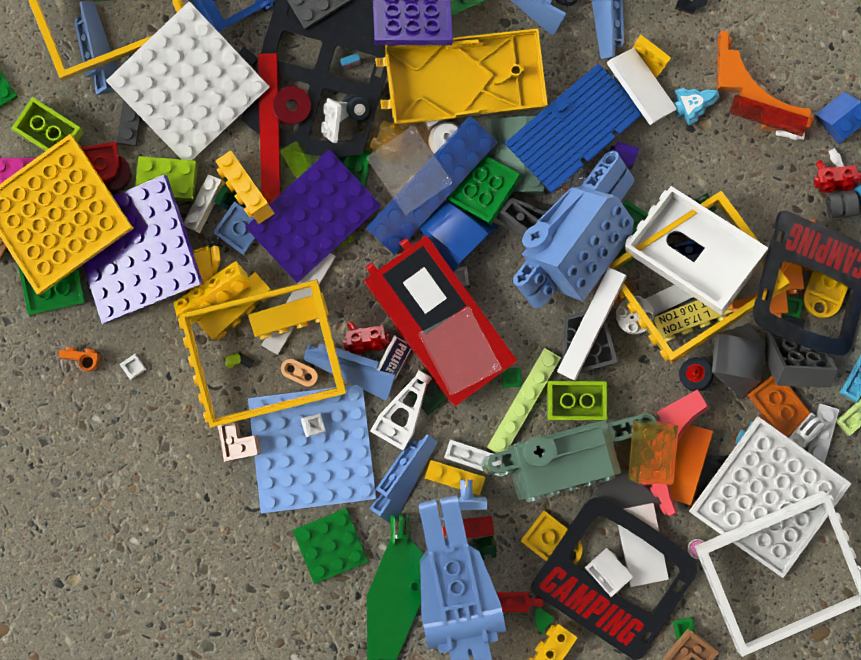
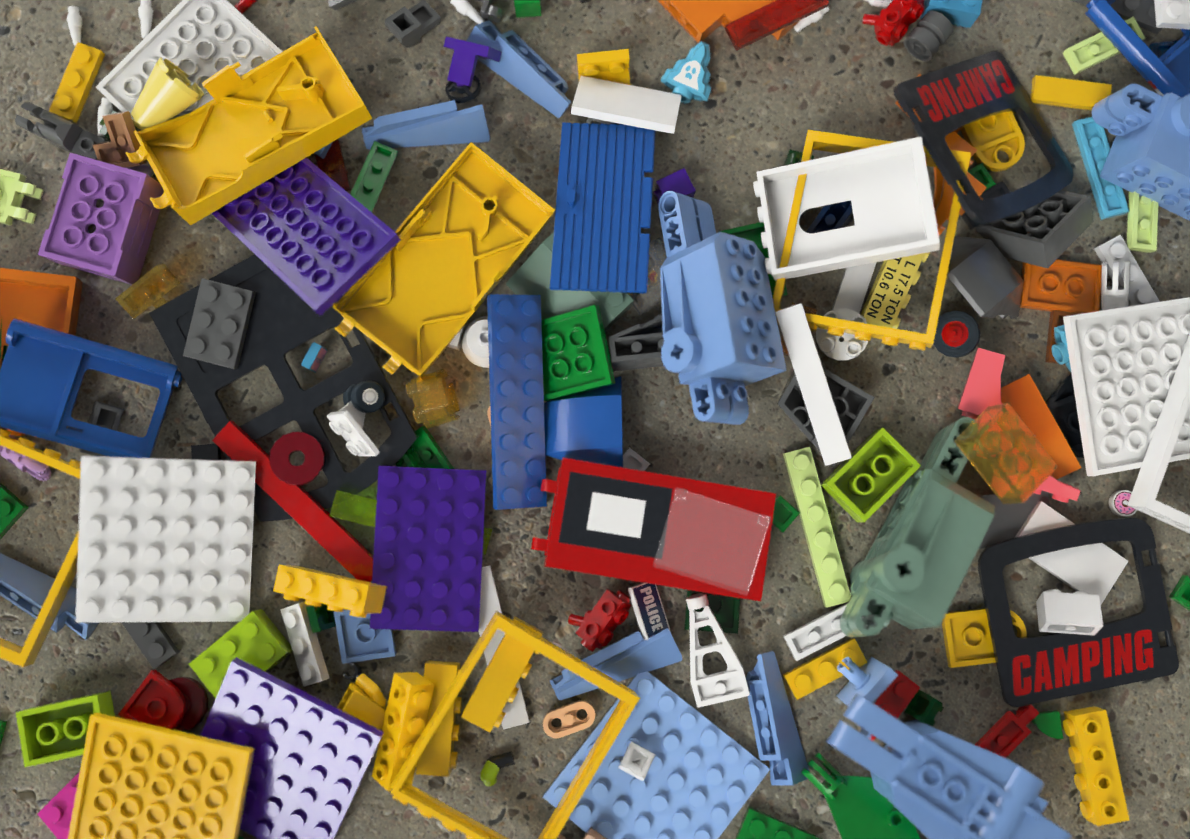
camera: 45 degrees left, 0 degrees up
(409, 170) = (480, 408): clear piece -> none

